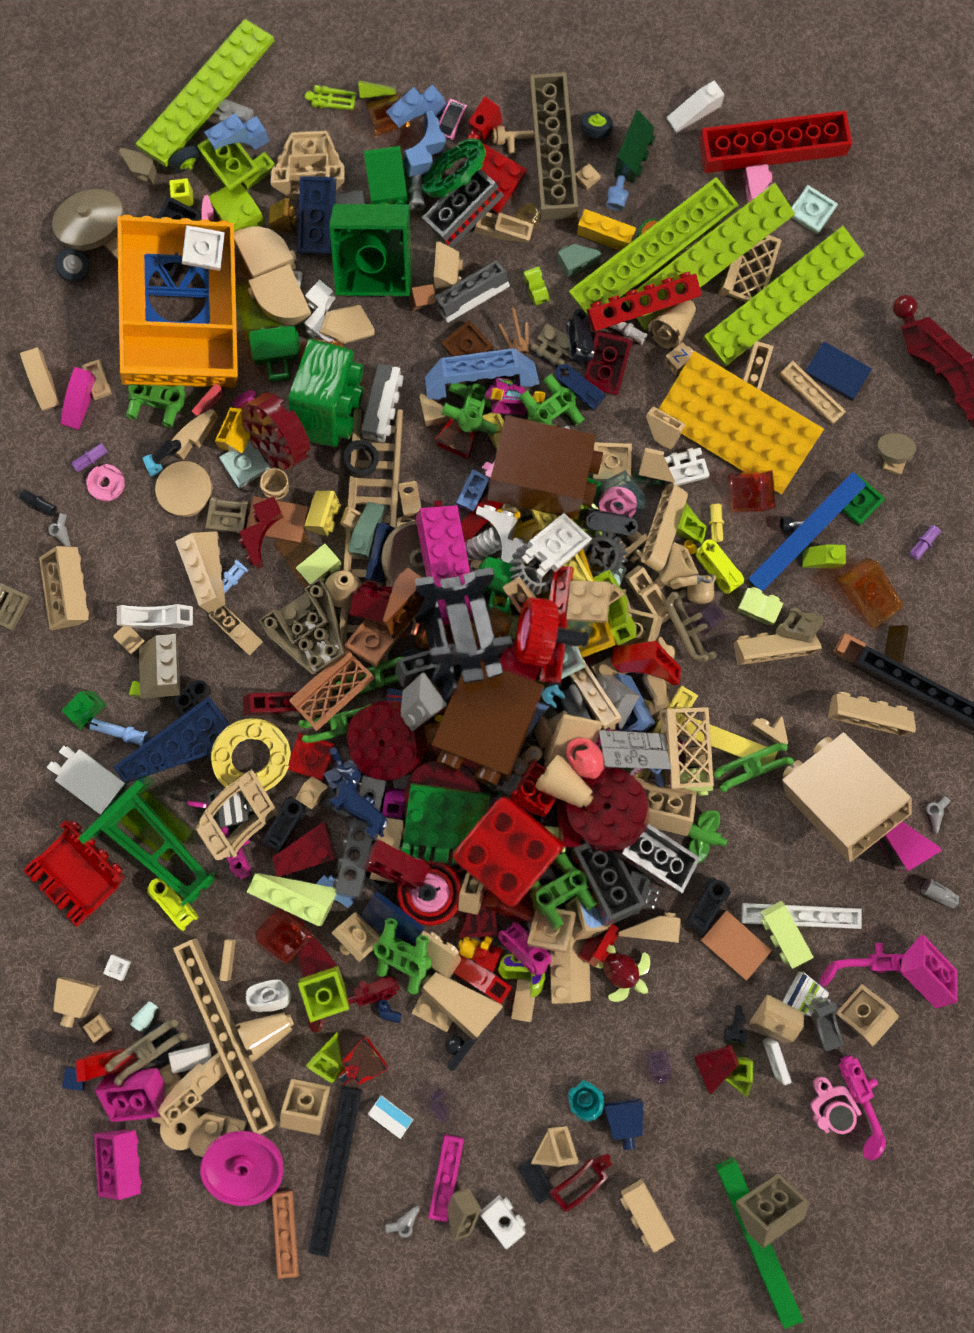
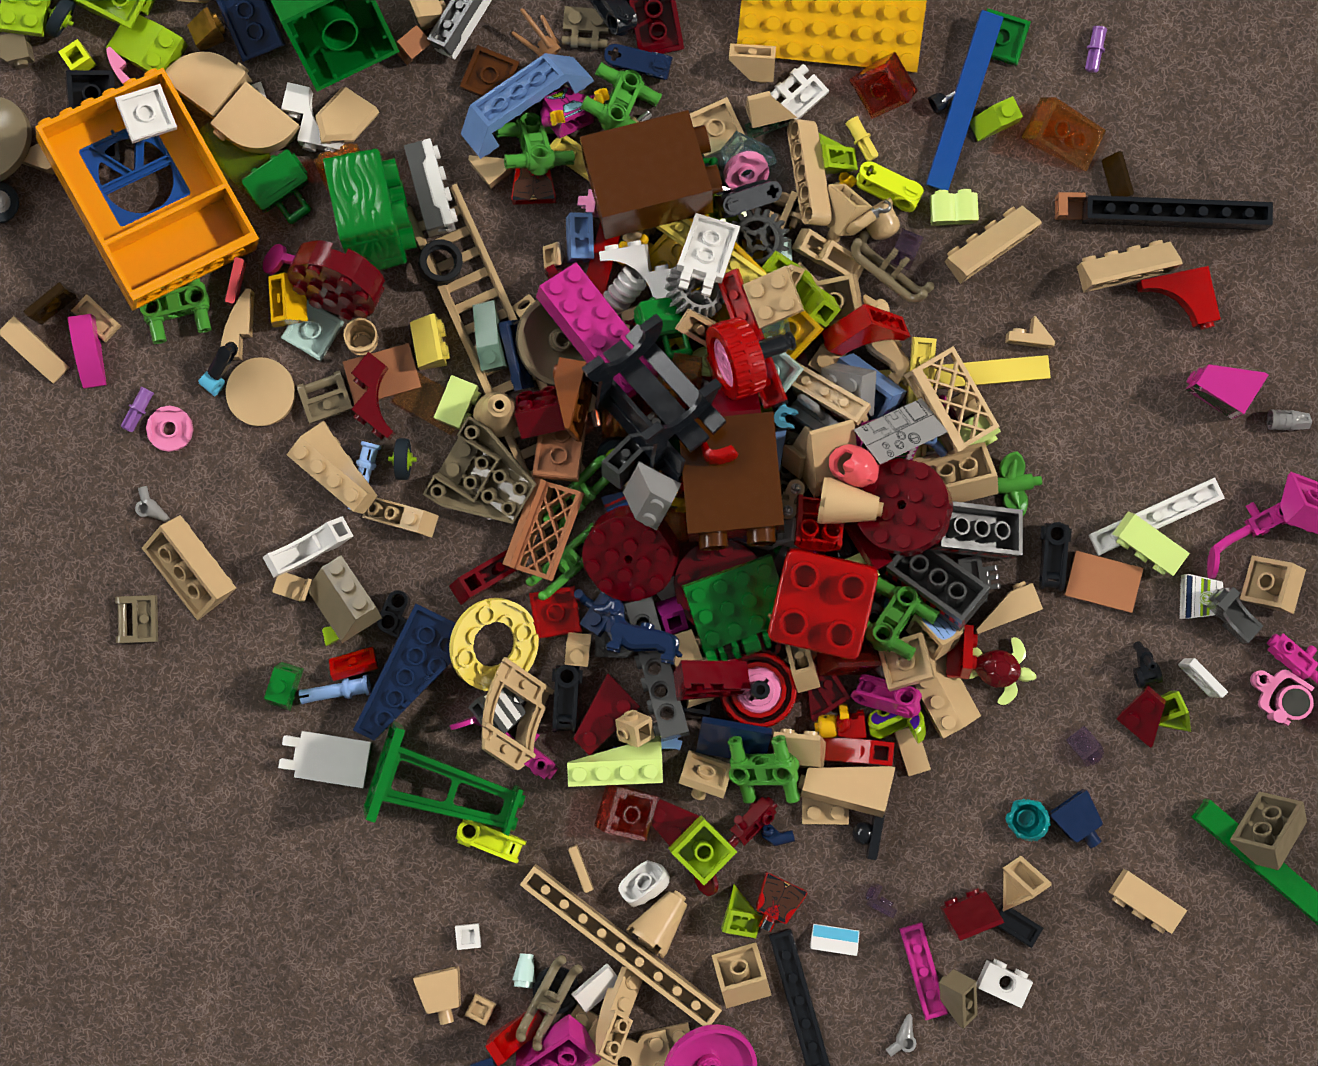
camera: 30 degrees left, 5 degrees up
(38, 502) = (107, 488): black axle -> none
(68, 351) = (50, 303): none -> dark brown tile
(76, 873) = (372, 858): red hinge -> none
(142, 718) = (353, 663): none -> red plate
(143, 829) = (427, 781): clear neon green piece -> none
(257, 586) = (402, 459): none -> black wheel
(320, 873) = (634, 728): none -> tan brick
(350, 518) = (464, 333): tan tile -> none
(410, 501) = (518, 281): tan bracket -> none
(446, 494) = (552, 254): none -> tan slope
(485, 698) = (718, 456): none -> red hair
(503, 1153) = (970, 914): none -> dark red slope
(596, 1165) = (1070, 879): dark red sword -> none
(752, 765) = (1029, 384): bright green piece -> none
(778, 1020) = (1184, 636): tan slope -> none
(804, 630) = (1014, 208): dark tan plate -> none
(846, 795) = (1142, 367): tan brick -> none
(911, 756) = (1190, 290): none -> red arch
(936, 812) = (1244, 336): light grey animal -> none

